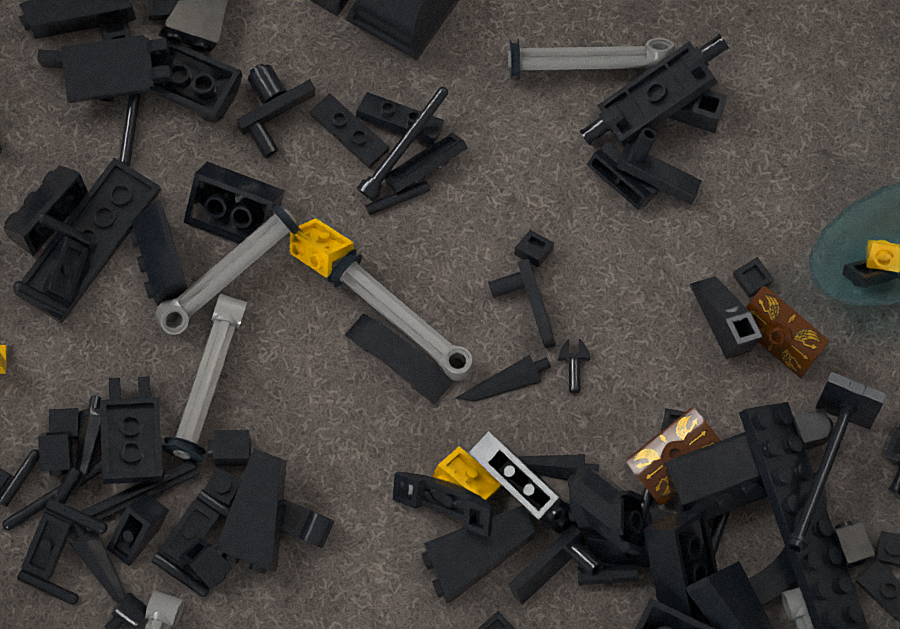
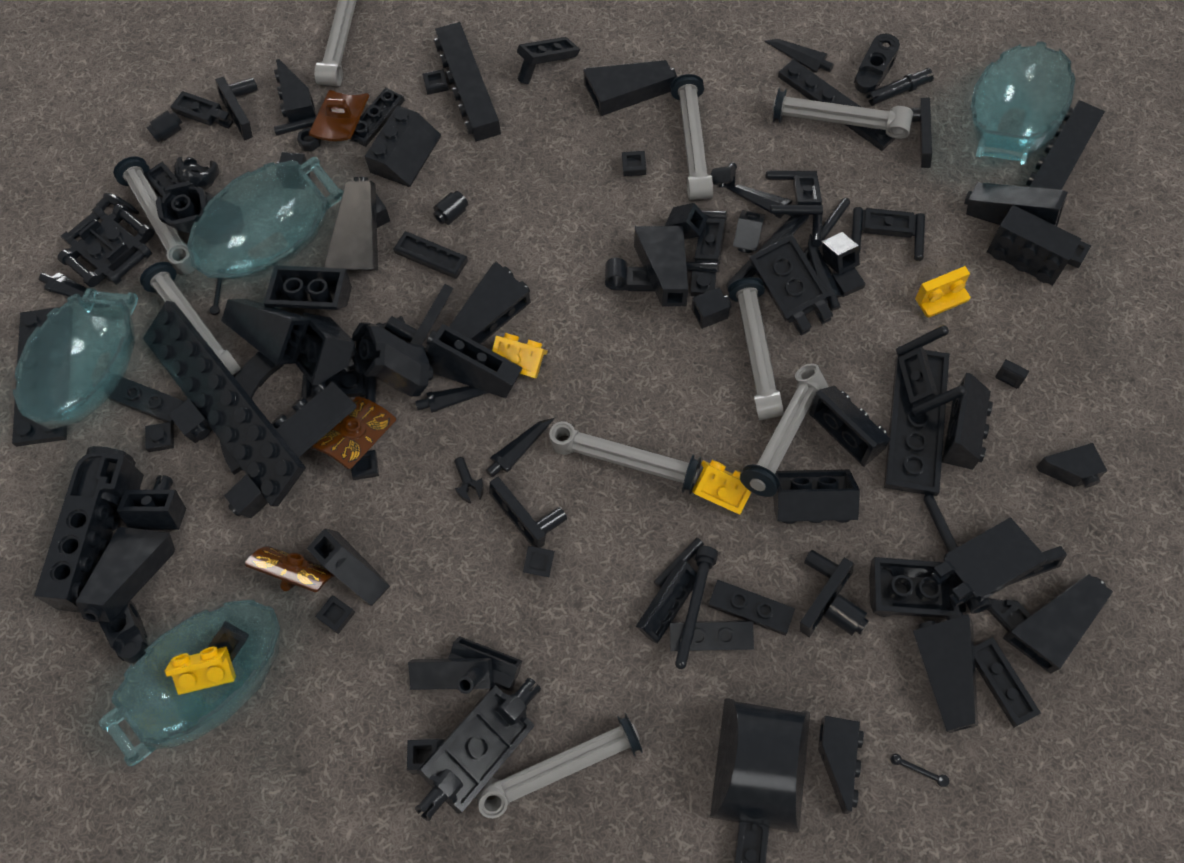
camera: 160 degrees right, 5 degrees down
(400, 357) = (617, 427): black slope -> none
(444, 497) = (553, 331): black slope -> none
(849, 403) = (217, 524): black tile -> none

